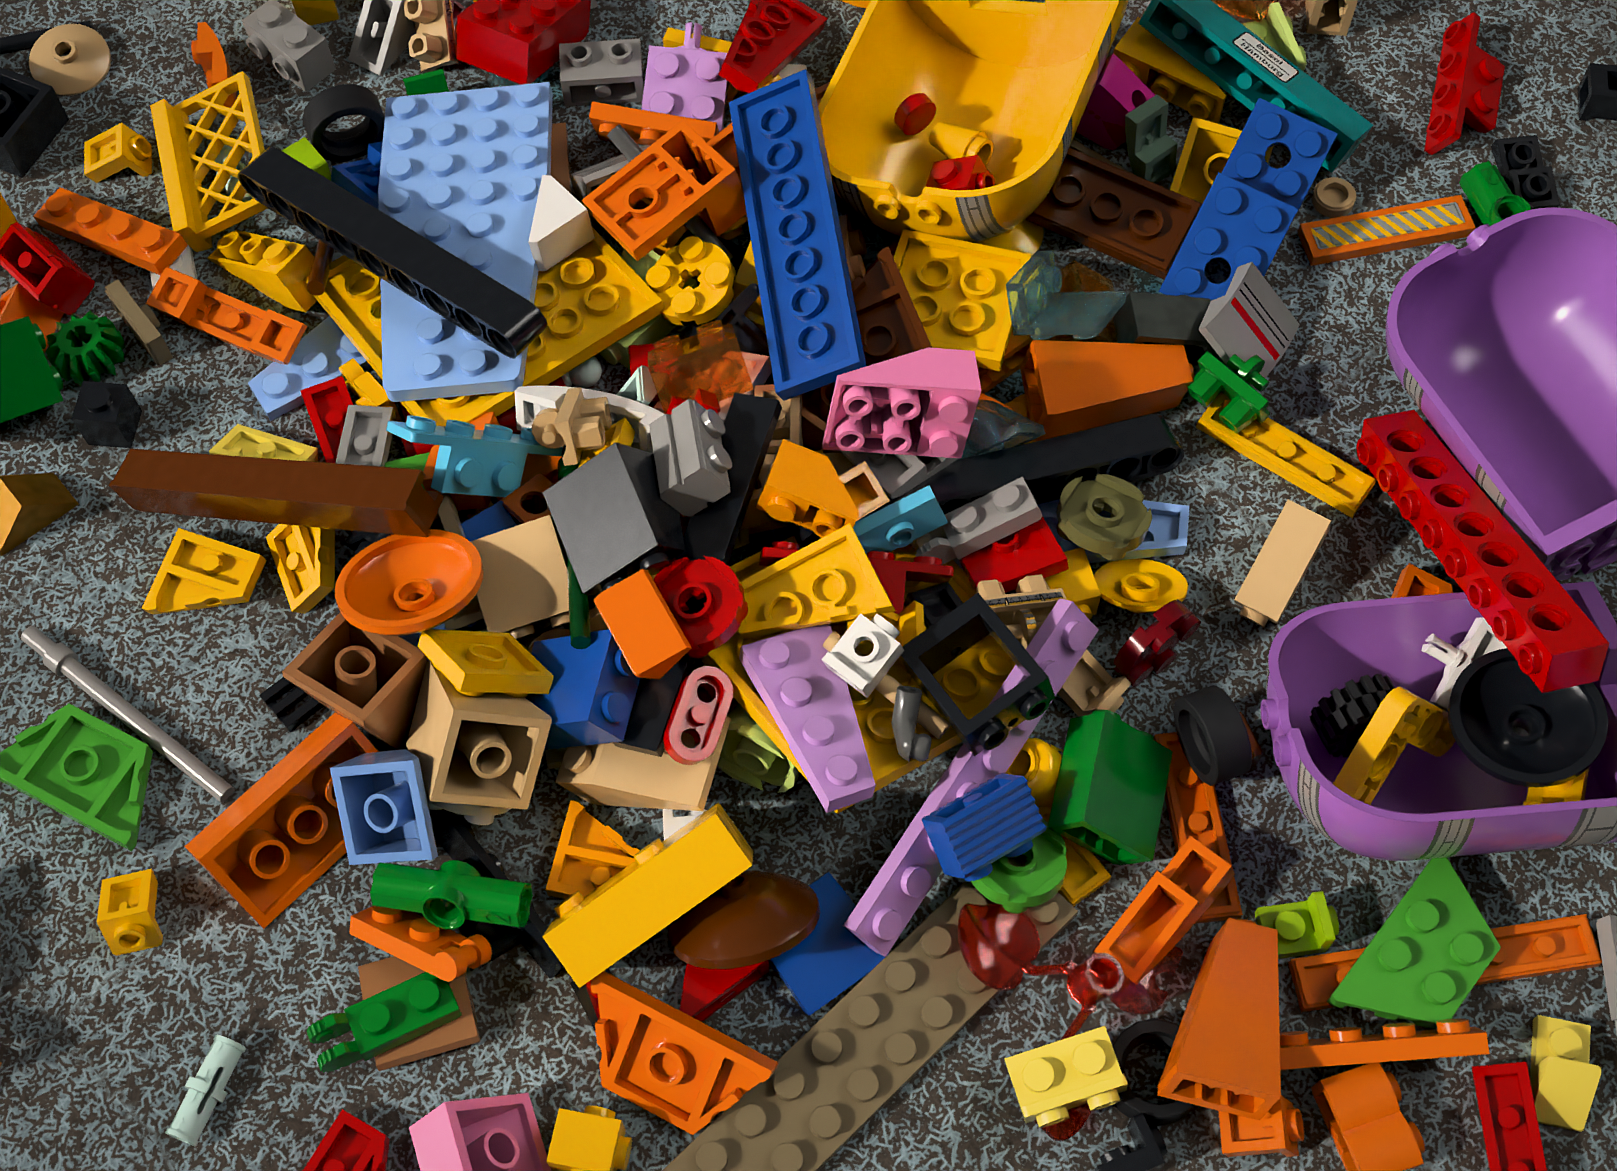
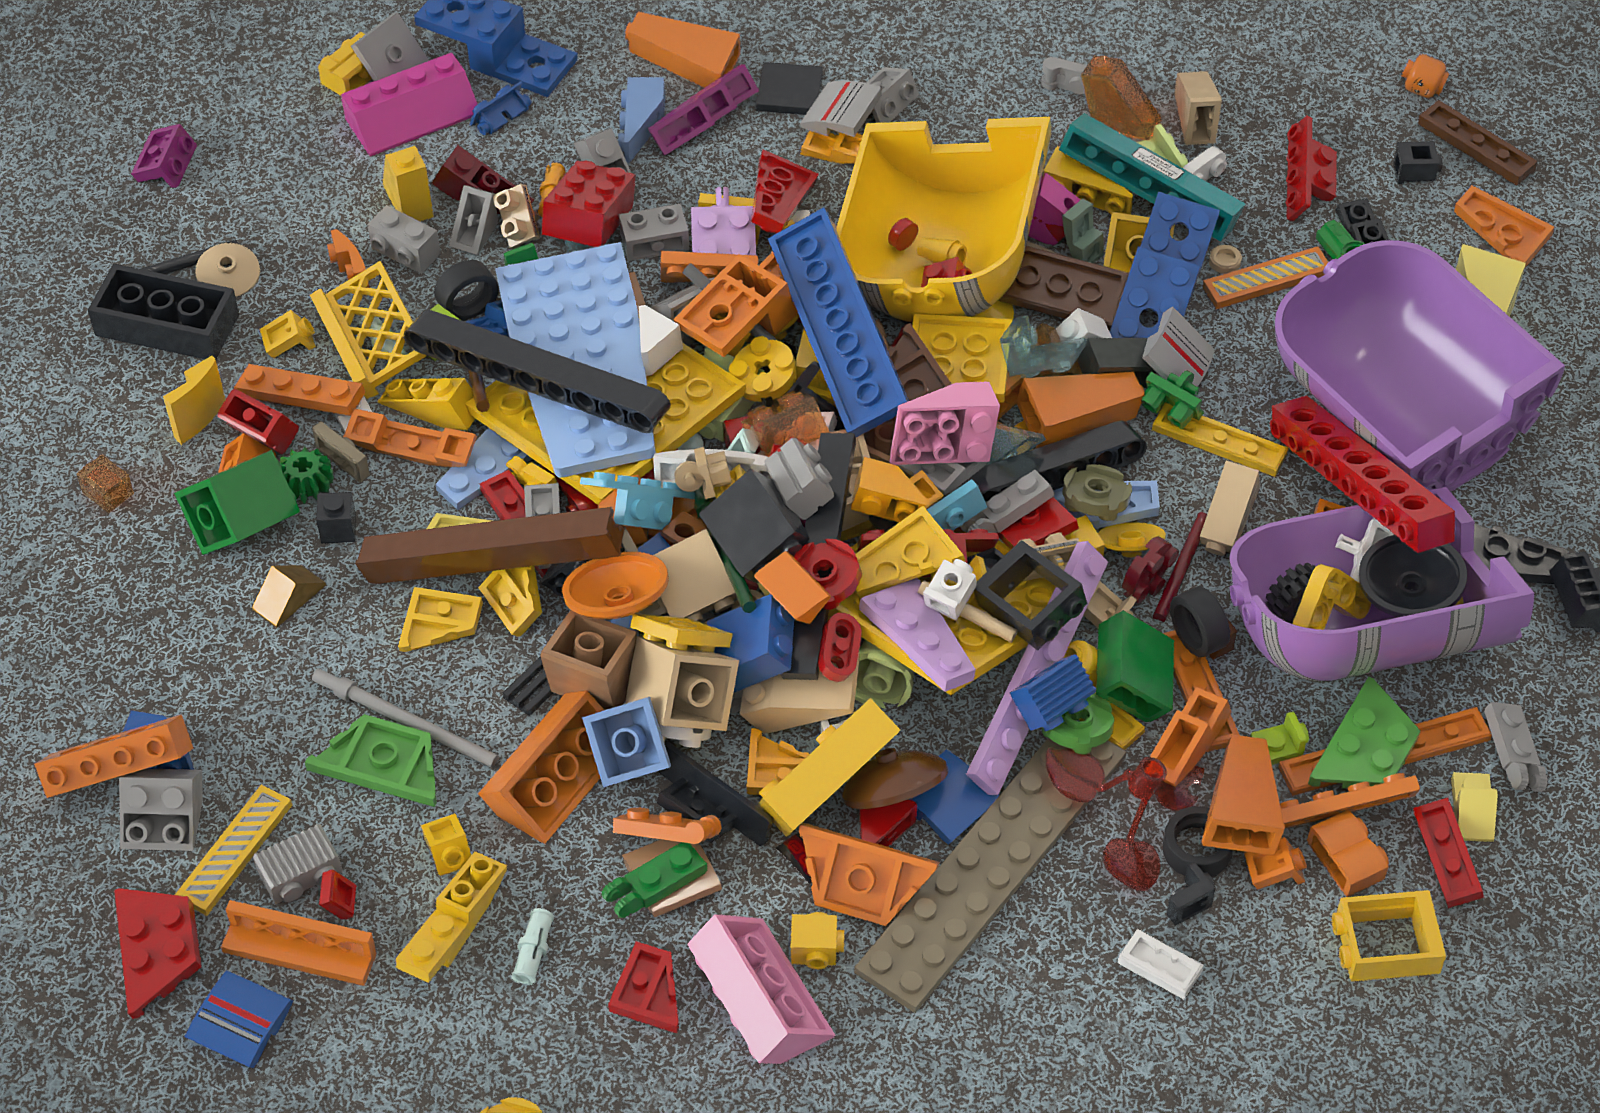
camera: 10 degrees left, 10 degrees down
(108, 1034) = (455, 917): none -> yellow slope
(451, 894) = (665, 791): green piece -> none
(904, 725) = (986, 632): dark grey arm -> none
(1066, 1076) = (1138, 846): light yellow bracket -> none
(1127, 273) = (1081, 325): none -> white brick
(1201, 637) = (1180, 568): none -> dark red bar
(1331, 64) = (1208, 164): none -> white plate

